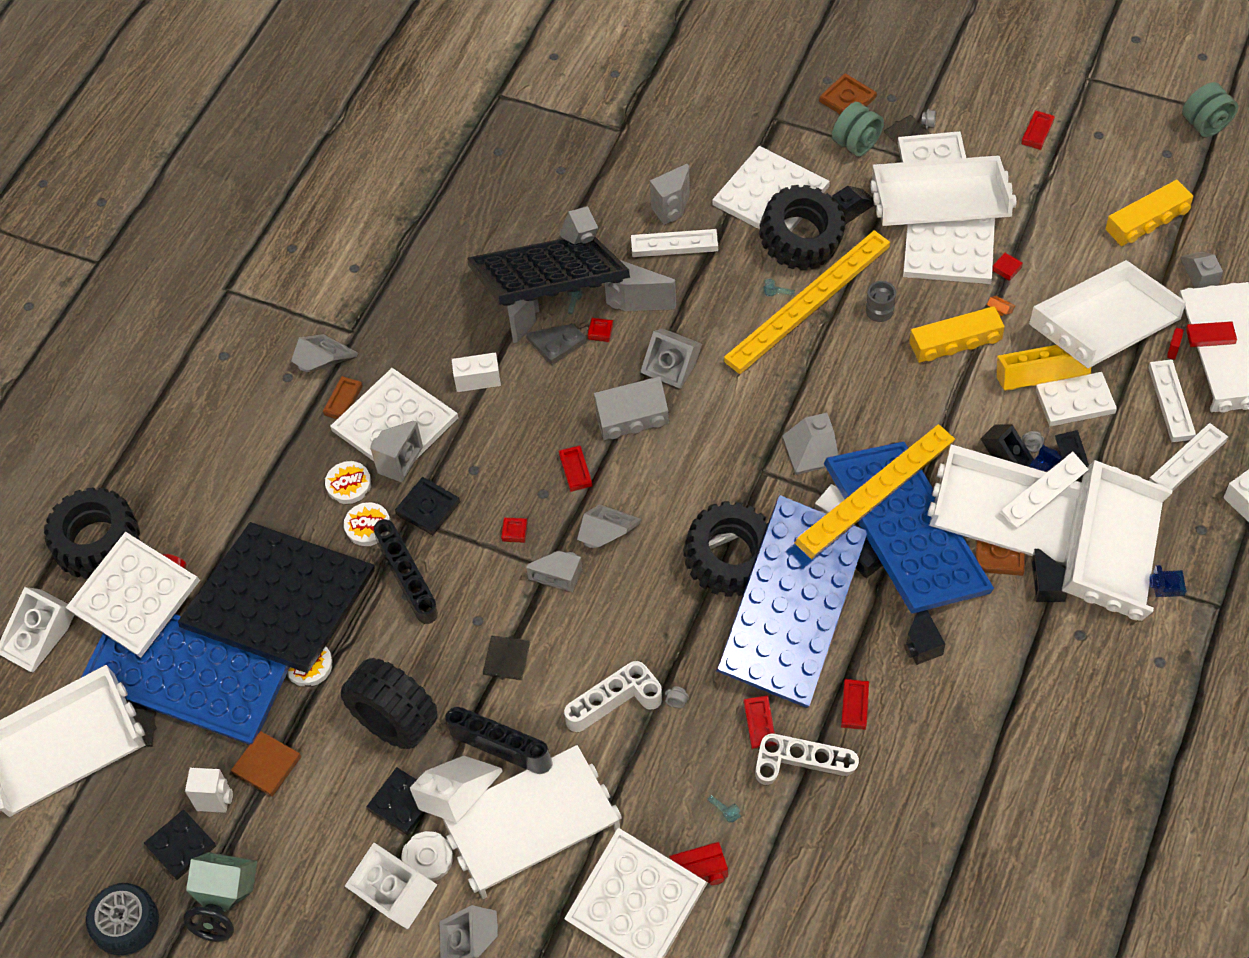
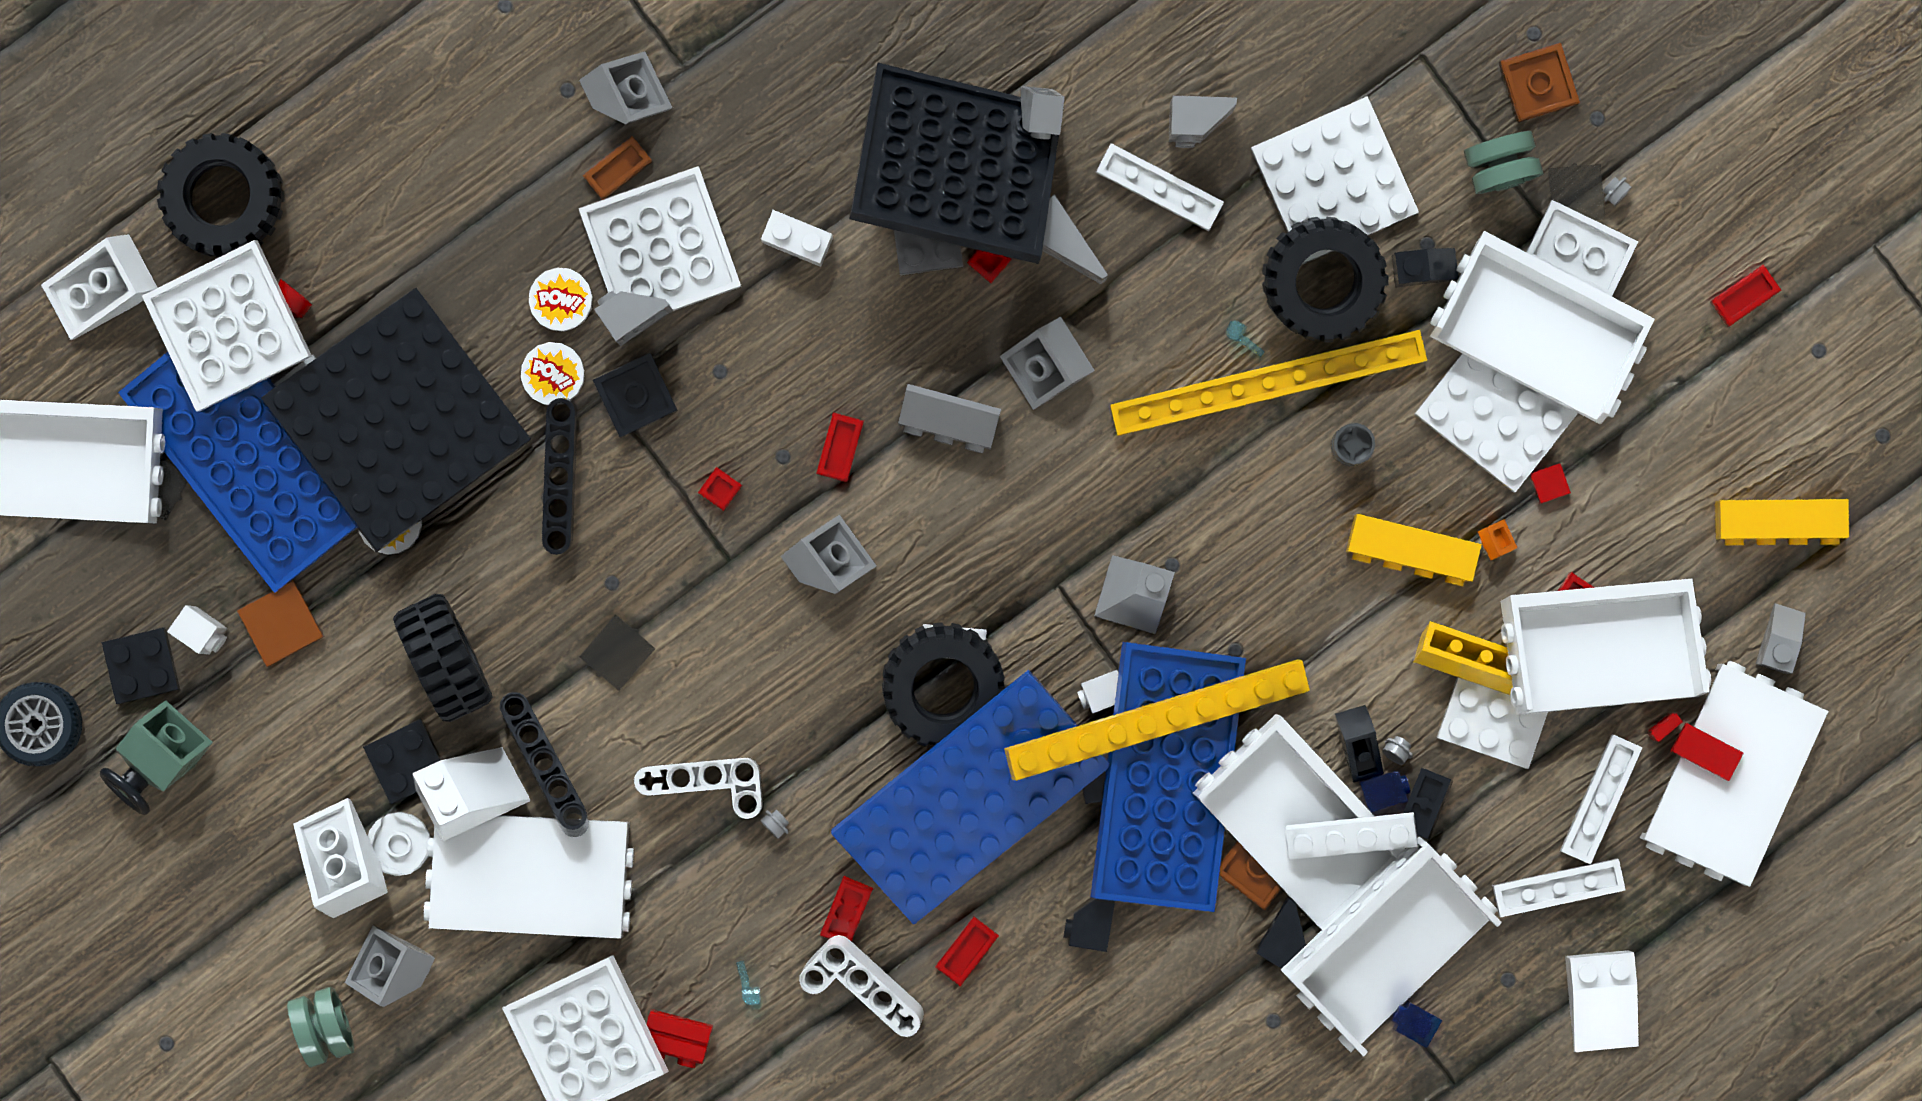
camera: 30 degrees right, 30 degrees up
(556, 570) = (737, 580): light grey slope -> none

